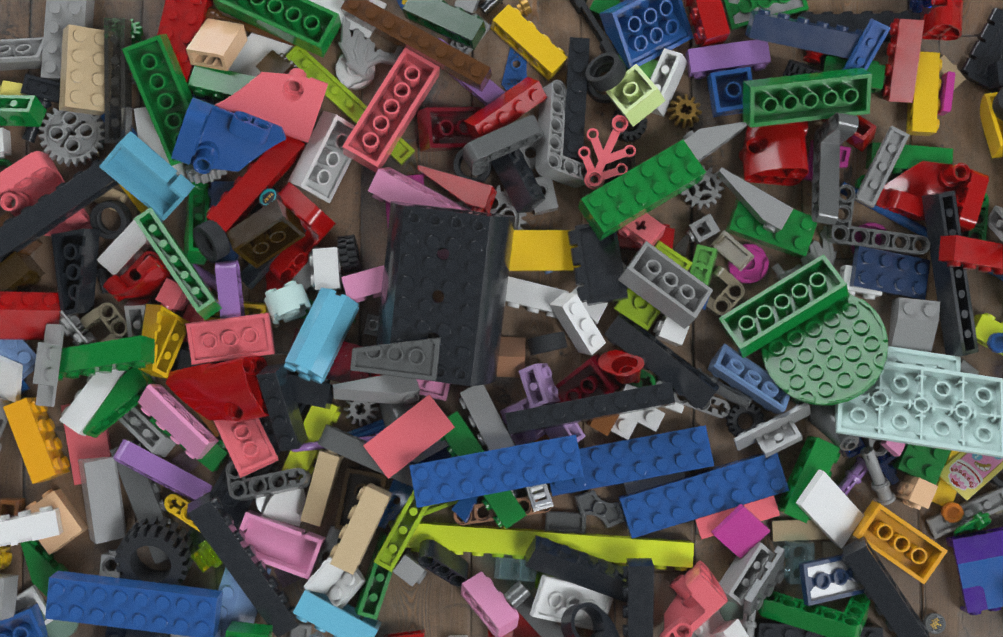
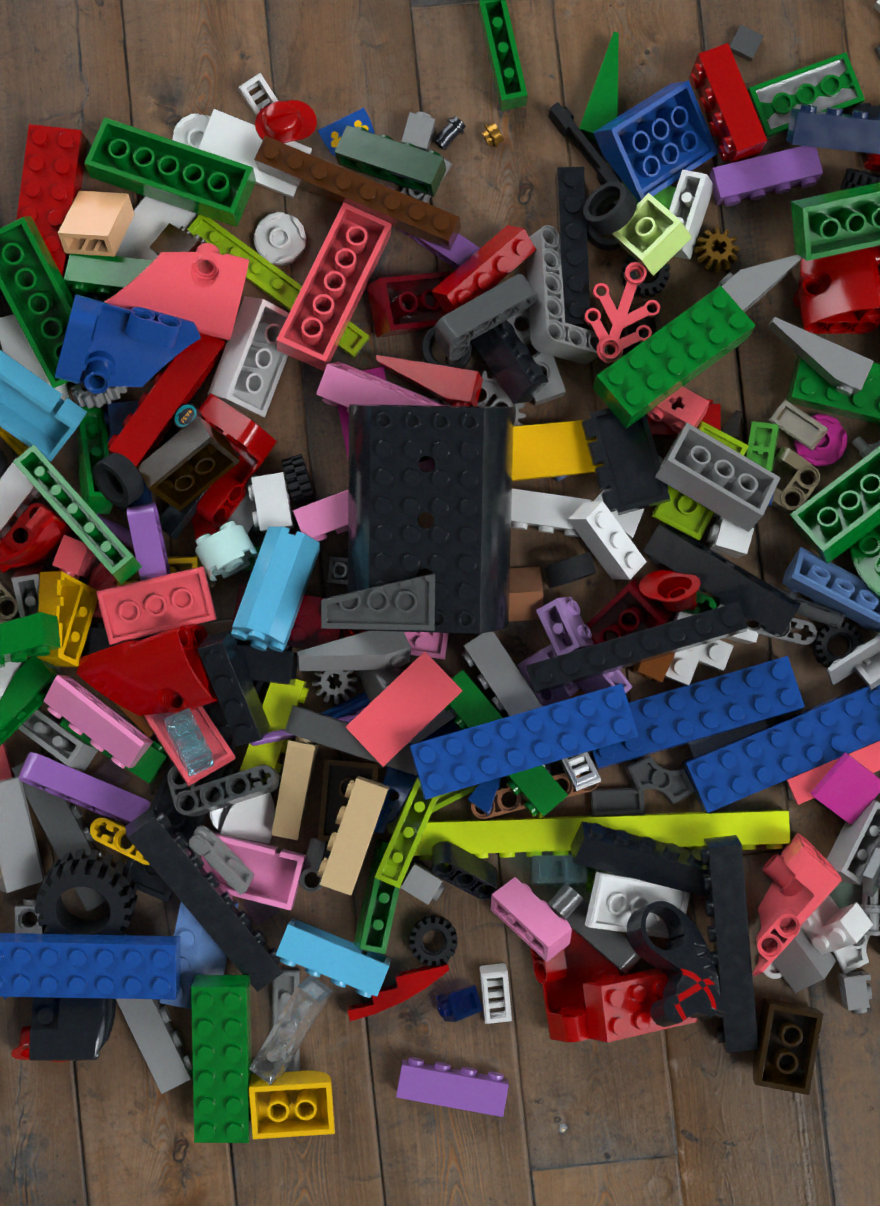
camera: 10 degrees left, 0 degrees up
(206, 557) = (155, 893): clear neon green brick -> none
(213, 13) = (88, 184): reddish brown piece -> none
(244, 444) = (189, 742): none -> clear light blue brick
(260, 535) = (221, 859): none -> light grey hinge
(335, 583) = (326, 911): white bracket -> none
(361, 53) = (285, 214): light grey animal -> none
(415, 625) = (428, 956): none -> black tyre
(514, 74) = (484, 222): blue piece -> none
(529, 42) = (504, 179): yellow brick -> none
(707, 224) = (762, 395): light grey brick -> none
(708, 191) = (758, 351): light grey gear -> none
(727, 91) = (770, 217): blue brick -> none

